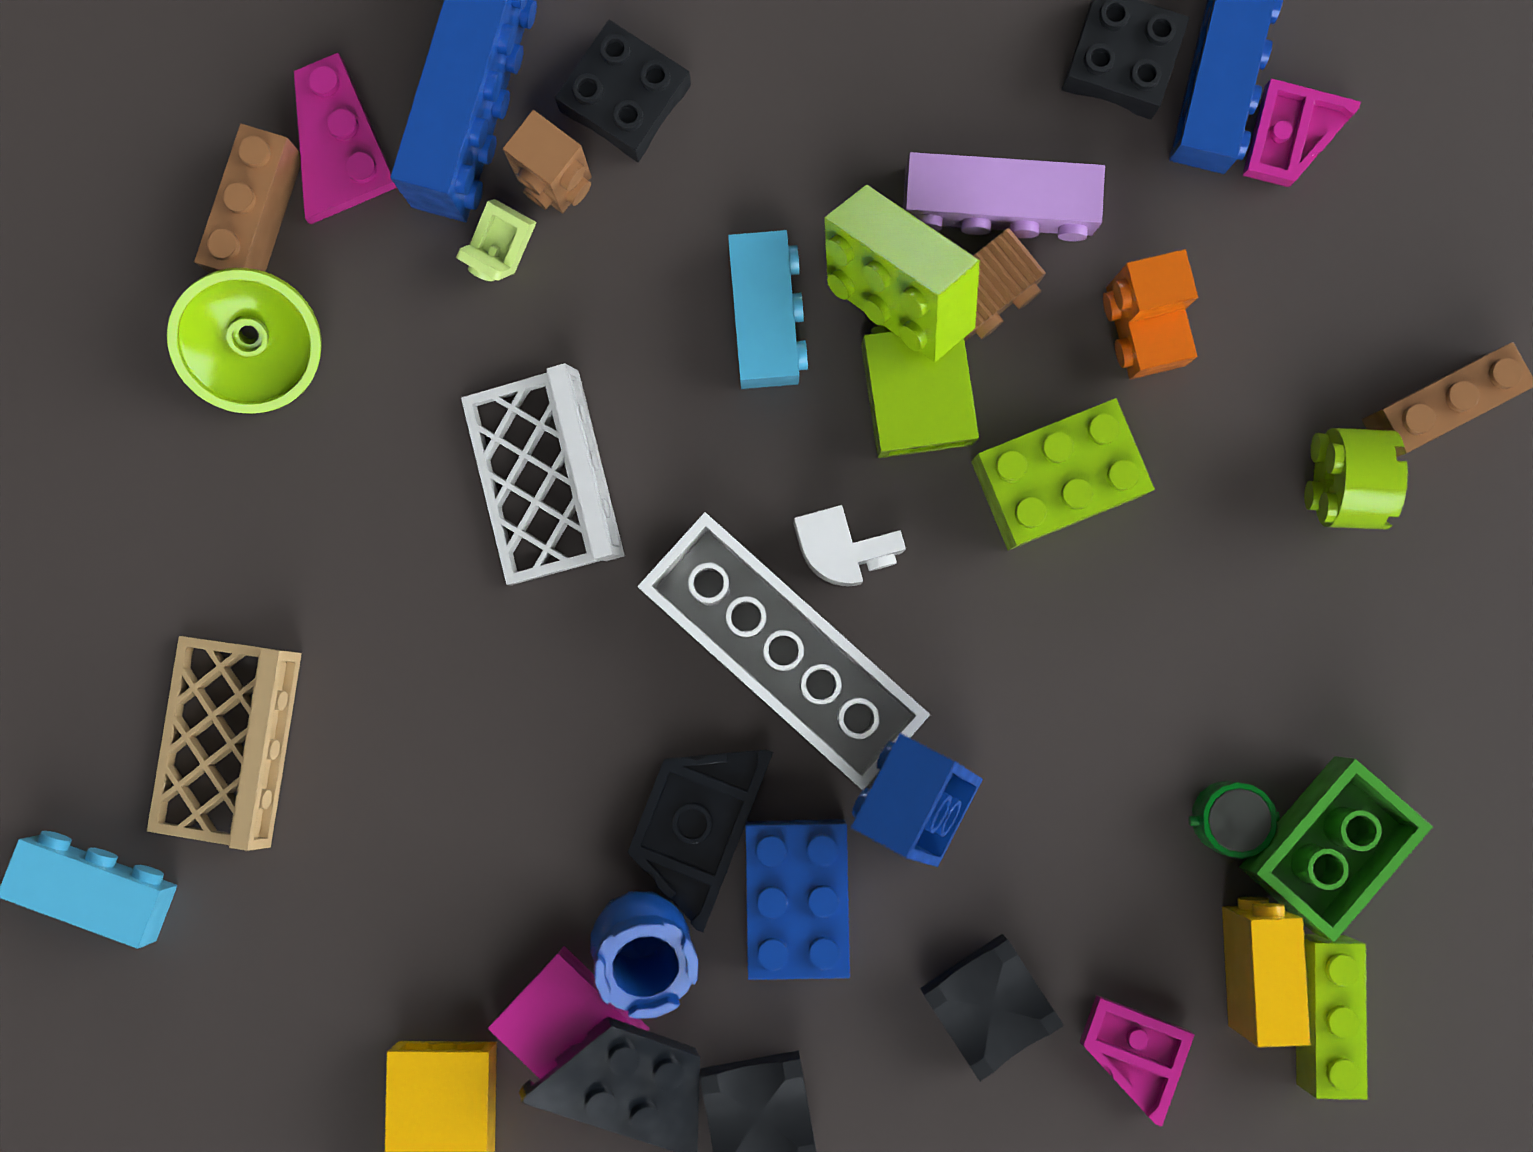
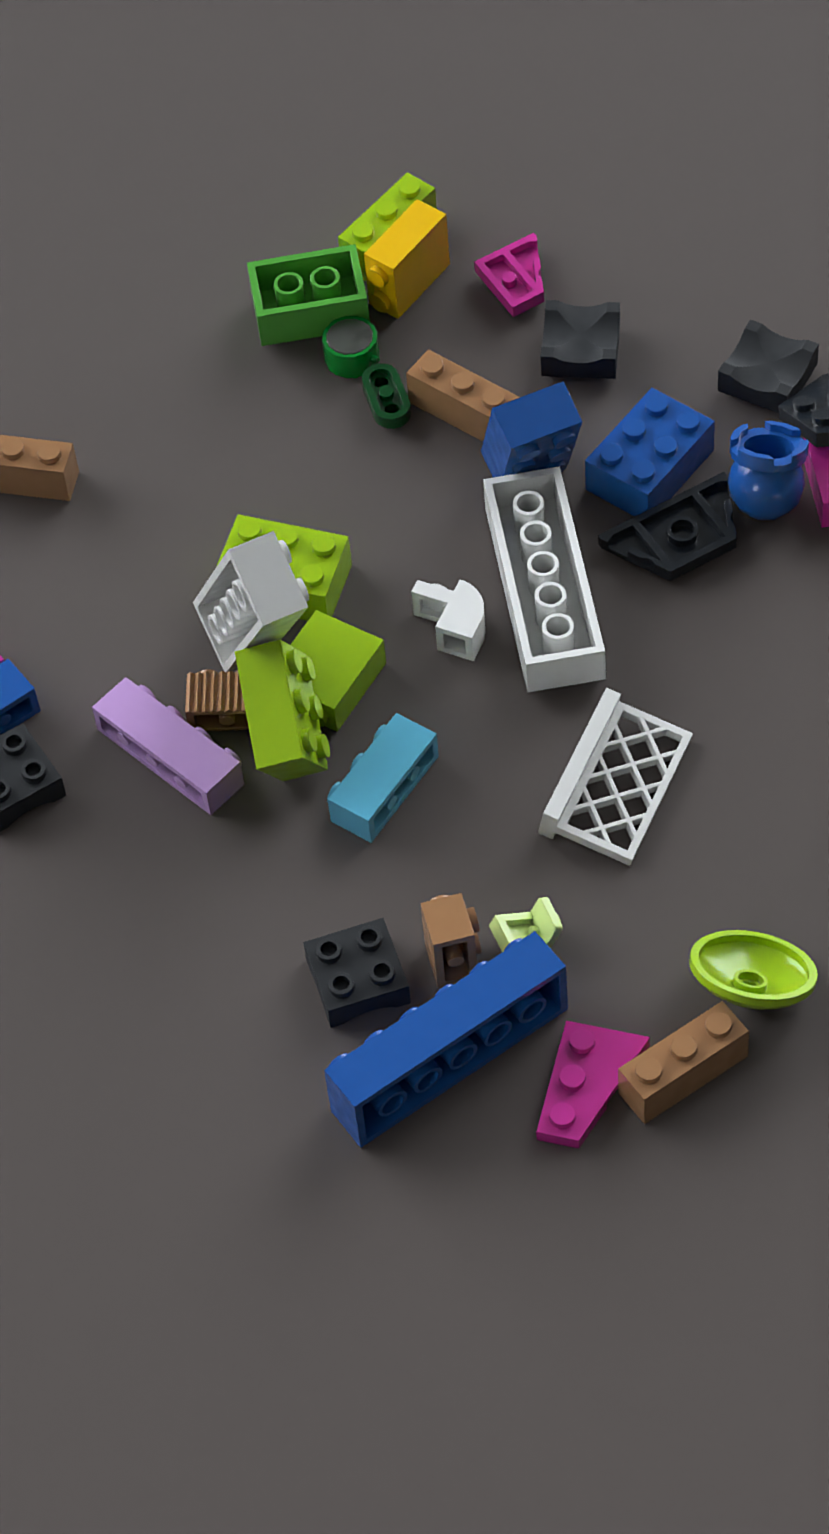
camera: 135 degrees left, 30 degrees down
(1001, 310) = (250, 598): none -> white brick
(1052, 830) = (454, 393): none -> medium nougat brick
(1141, 779) = (390, 401): none -> dark green plate
(1150, 314) = (142, 615): orange brick -> none
(1356, 478) = (113, 452): lime brick -> none

